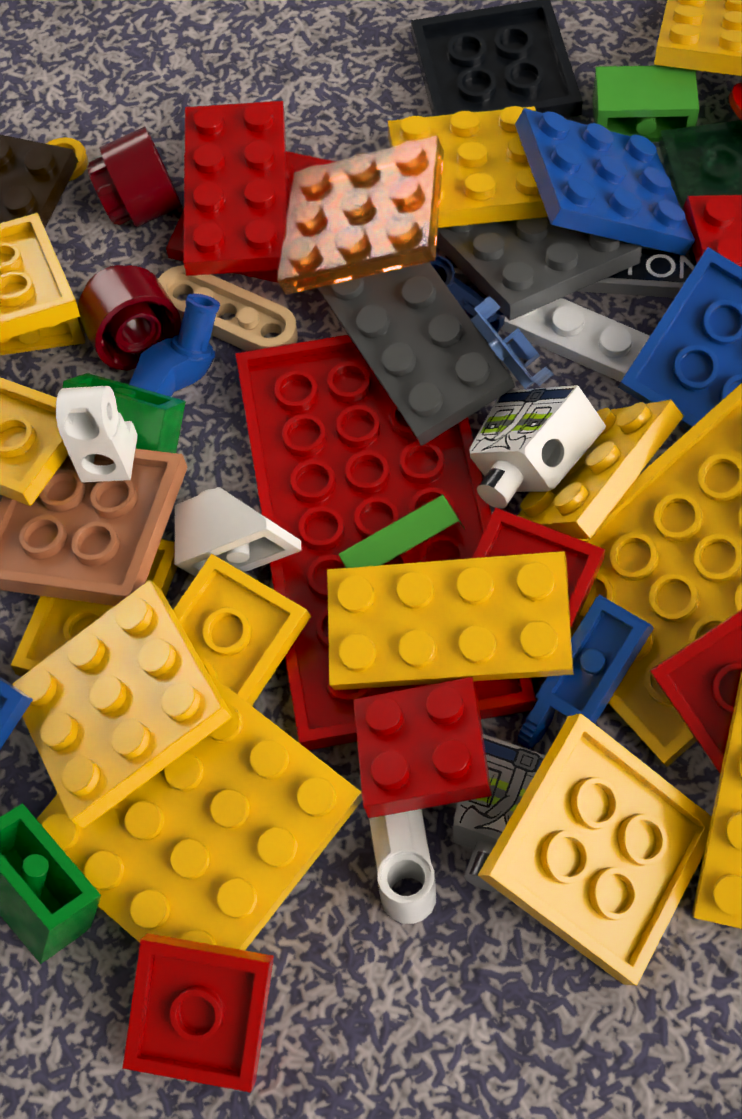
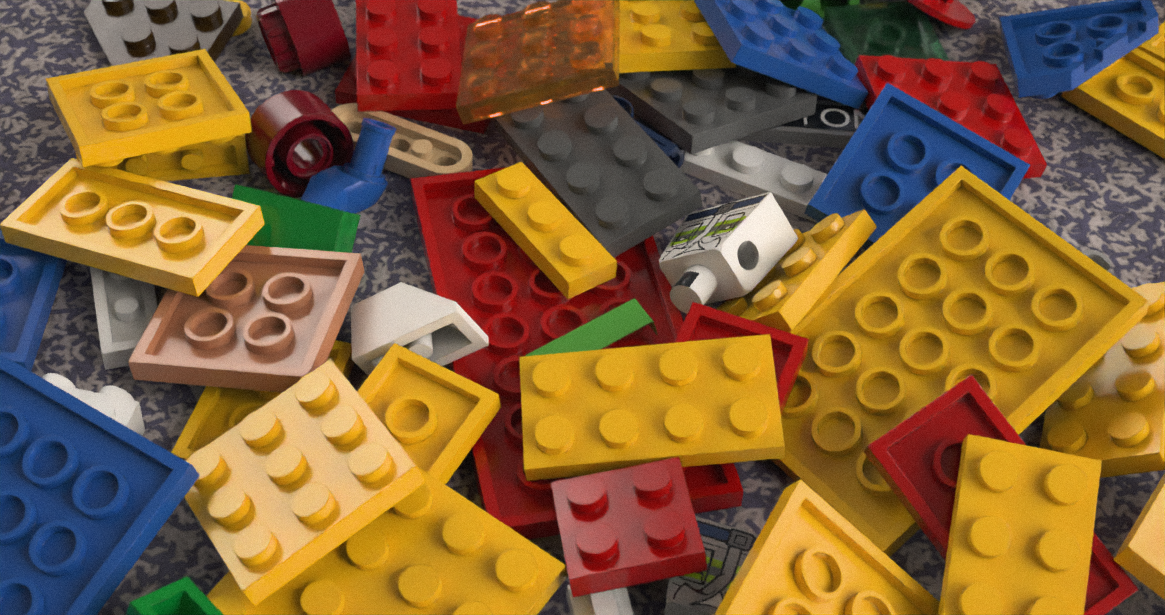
camera: 10 degrees left, 15 degrees down
(93, 426) = (272, 219): white leg -> none
(361, 413) = (545, 230): none -> yellow plate
(510, 352) = (711, 192): medium blue piece -> none
(601, 656) = (814, 438): blue hinge -> none

